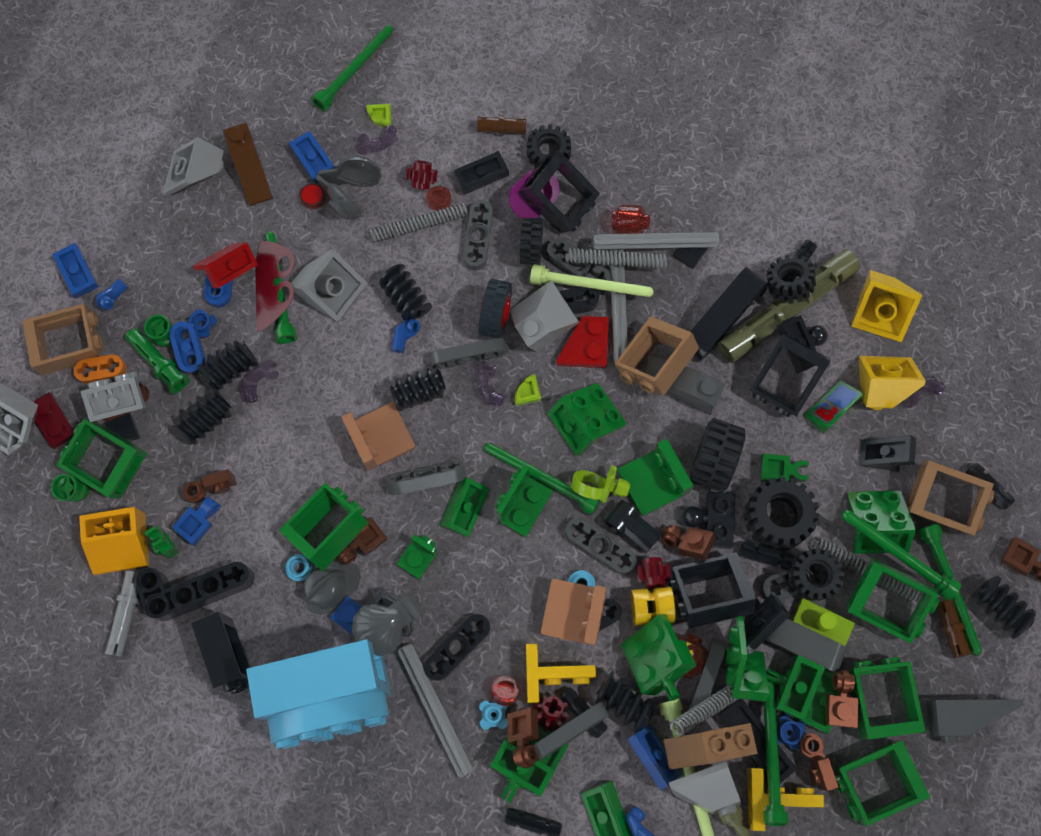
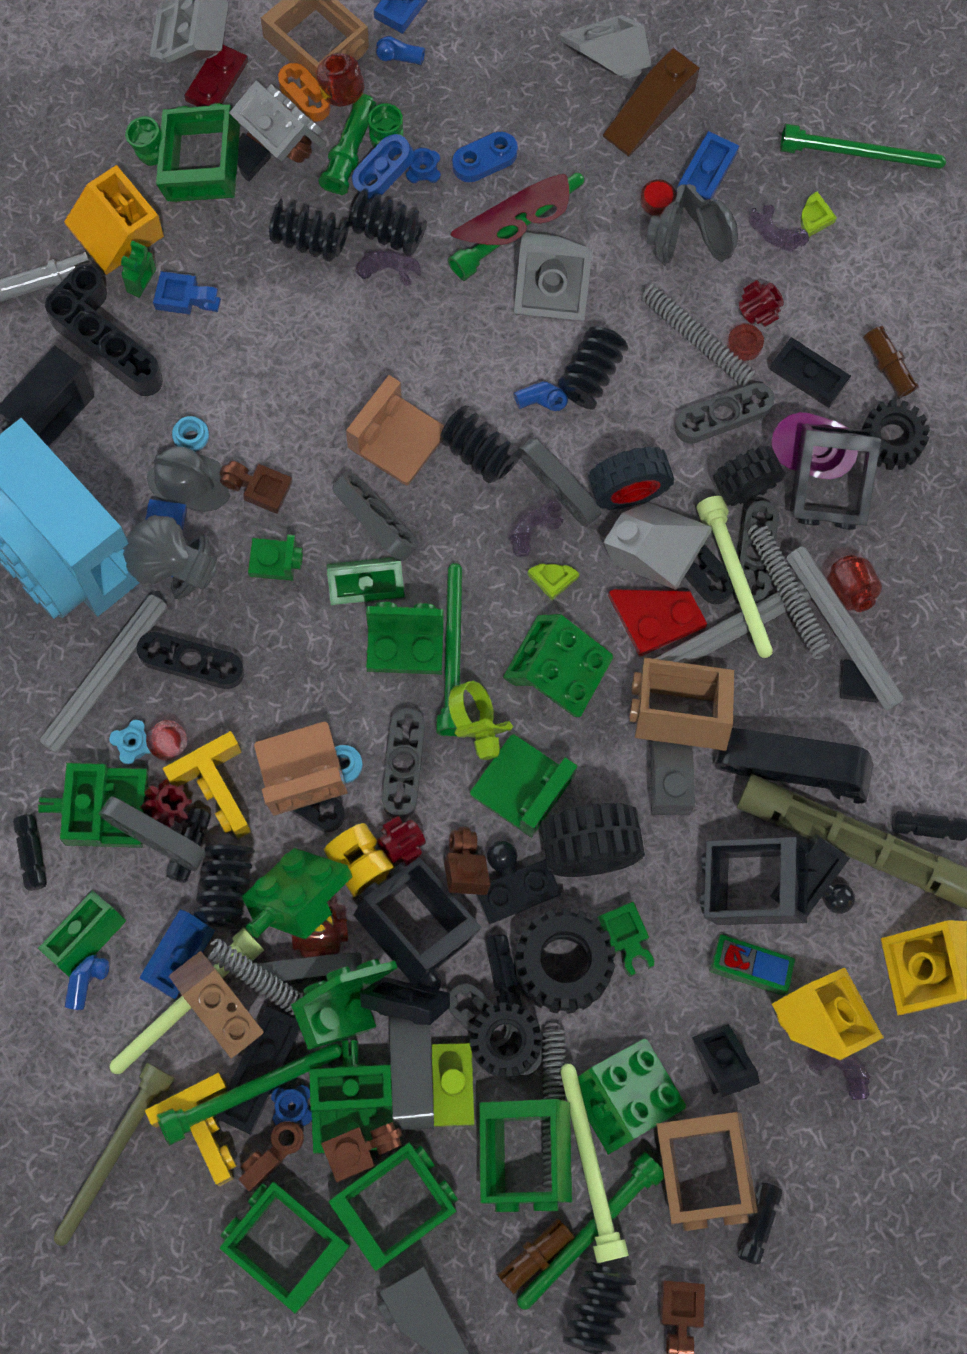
camera: 55 degrees right, 0 degrees up
(110, 340) = (340, 79): none -> clear red head
(217, 482) = (239, 289): copper plate -> none
(227, 264) = (509, 150): red panel -> none
(312, 512) = (252, 410): green window -> none
(521, 730) = (124, 776): copper plate -> none
(630, 524) = (449, 781): black piece -> none
(709, 790) = (166, 1030): light grey slope -> none
(791, 267) = (898, 804): black tyre -> none
(946, 586) = (582, 1212): green piece -> none
(970, 580) = (608, 1242): none -> yellowish green piece

